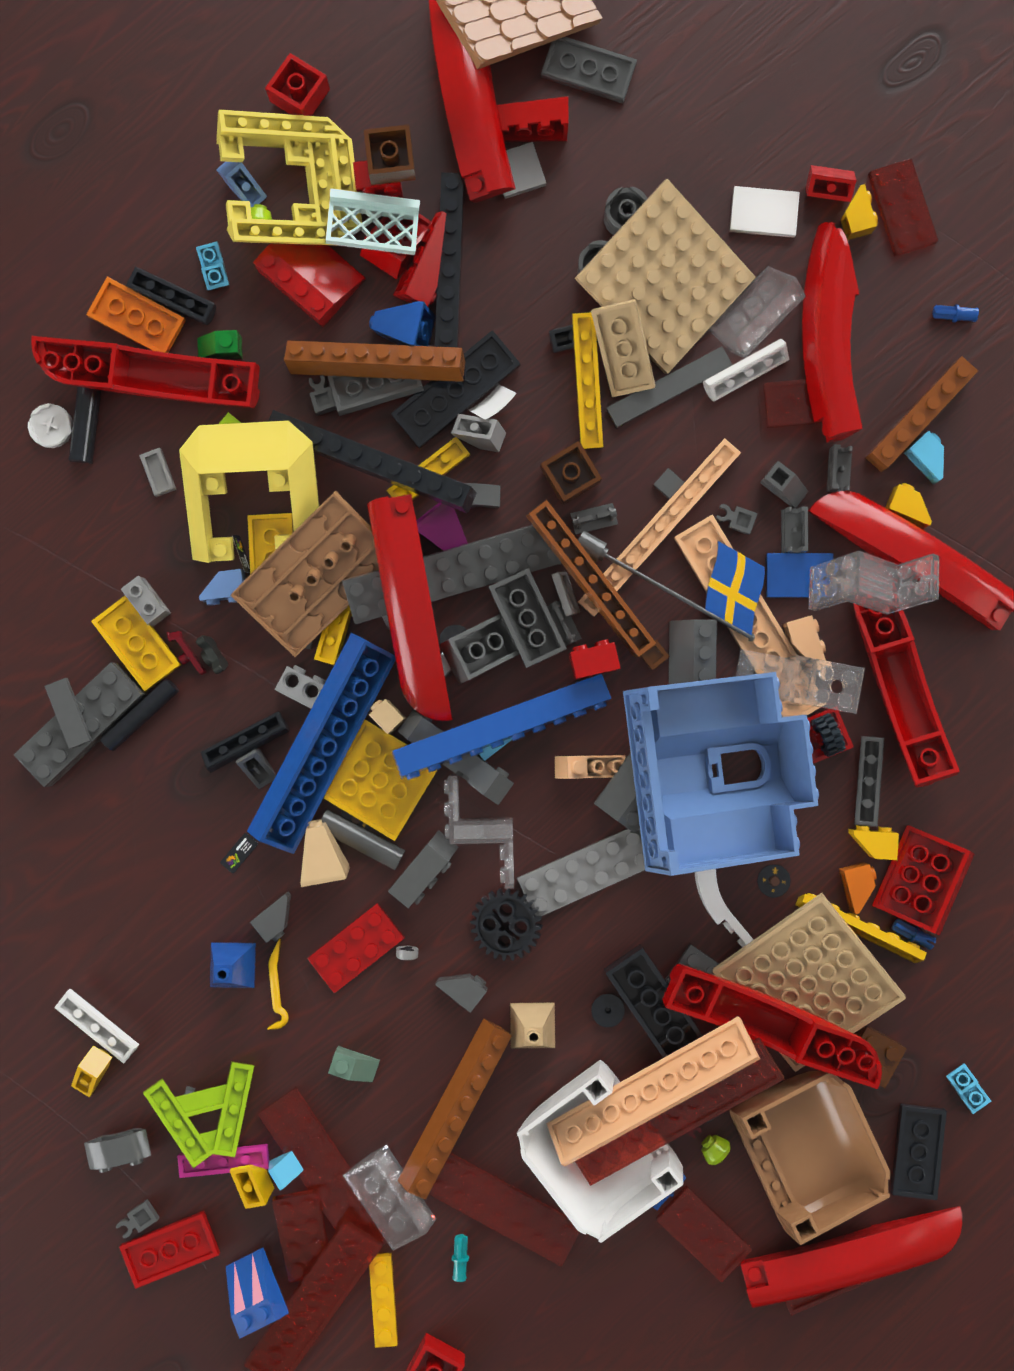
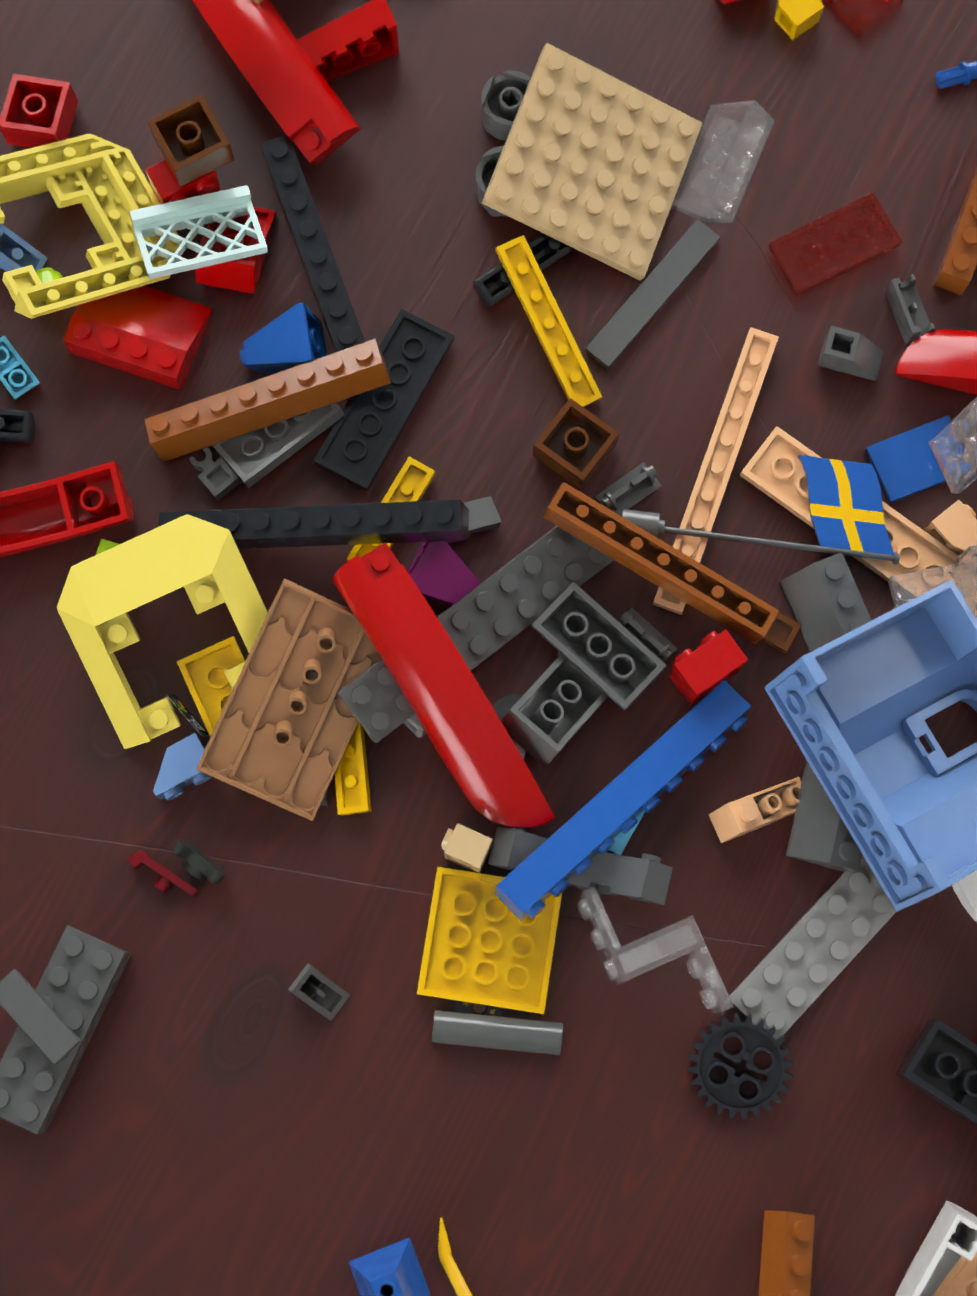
camera: 25 degrees left, 10 degrees down
(136, 643) = (90, 889): yellow plate -> none
(139, 715) = (131, 984): black brick -> none
(145, 601) = (83, 827): light grey brick -> none
(157, 472) = (35, 654): light grey tile -> none
(221, 345) = (57, 459): green slope -> none
(239, 853) = (338, 1120): black sticker -> none
(244, 741) = (287, 963): black brick -> none
(273, 919) = (422, 1191): dark grey slope -> none
(300, 692) = (335, 866): light grey brick -> none
(321, 744) = (394, 922): blue brick -> none
(322, 856) = (455, 1073): tan slope -> none
(355, 948) = (550, 1186): red plate -> none
(407, 952) = (623, 1162): light grey tile -> none
(421, 278) = (287, 271): red wedge -> none
(423, 870) = (600, 1038): dark grey wedge -> none
(463, 989) = (721, 1180): dark grey slope -> none
(479, 432) = (437, 438): light grey slope -> none
(493, 403) = (441, 395): white sticker -> none
(525, 169) = (364, 104): light grey tile -> none
(532, 1025) = (834, 1193): tan slope -> none
(566, 593) = (633, 598): light grey tile -> none
(608, 1010) = (926, 1129): black piece -> none
(623, 348) = (577, 265): tan plate -> none
(668, 483) = (704, 411): dark grey tile -> none
(740, 520) = (814, 419): dark grey plate -> none
(746, 370) = (740, 236): white brick -> none
(764, 211) = (678, 44): white tile -> none
(794, 530) = (888, 405): dark grey hinge -> none
(827, 333) = (823, 152): red slope -> none

